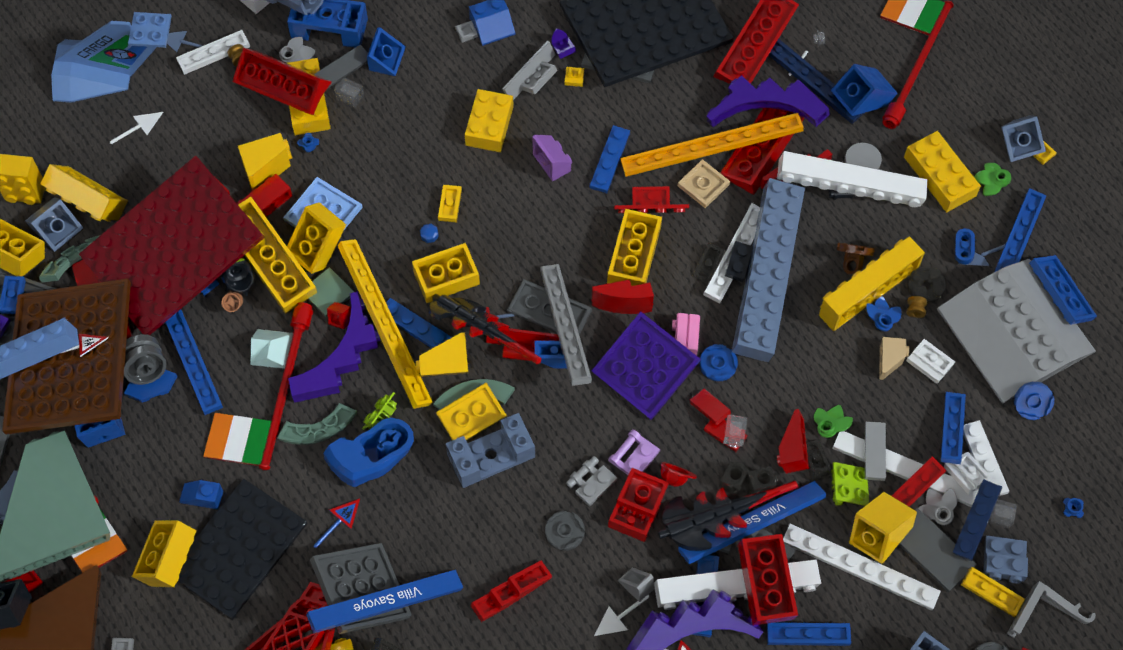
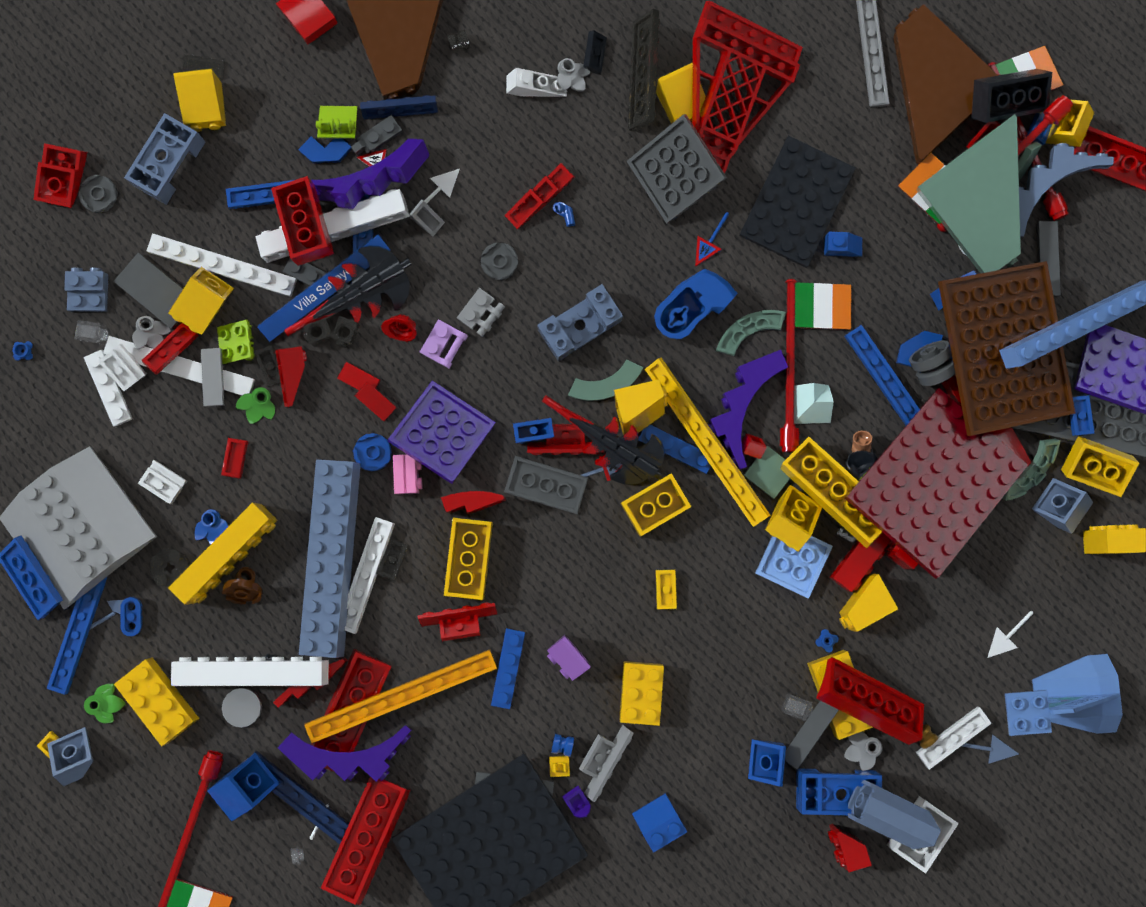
camera: 170 degrees right, 20 degrees up
(83, 192) = (1043, 539): yellow brick -> none
(88, 342) = (990, 358): piece -> none
(164, 553) = (862, 177): yellow brick -> none
(383, 408) = (695, 342): lime hinge -> none
(384, 601) = (651, 154): blue tile -> none
(429, 233) = (681, 553): blue tile -> none
(466, 31) = (685, 807): light grey tile -> none
(471, 413) = (605, 360): yellow tile -> none
(485, 571) = (565, 211): none -> blue arm
(565, 325) = (526, 461): light grey tile -> none
(569, 90) = (562, 745): none -> blue wheel
(638, 504) = (433, 293): red slope -> none
(703, 183) = (406, 651): tan plate -> none
(735, 431) = (348, 375): clear brick -> none
(738, 261) = (361, 562): black plate -> none
(857, 375) = (234, 458): none -> red tile
(891, 355) = (201, 480): tan slope -> none
(916, 306) = (178, 539): pearl gold wheel -> none
(953, 428) = (137, 411): blue plate -> none
(977, 520) = (111, 317): dark blue plate -> none
(992, 591) = (98, 257): yellow tile -> none
(1034, 400) = (58, 450): blue tile -> none
(1043, 592) = (62, 249): light grey hinge -> none

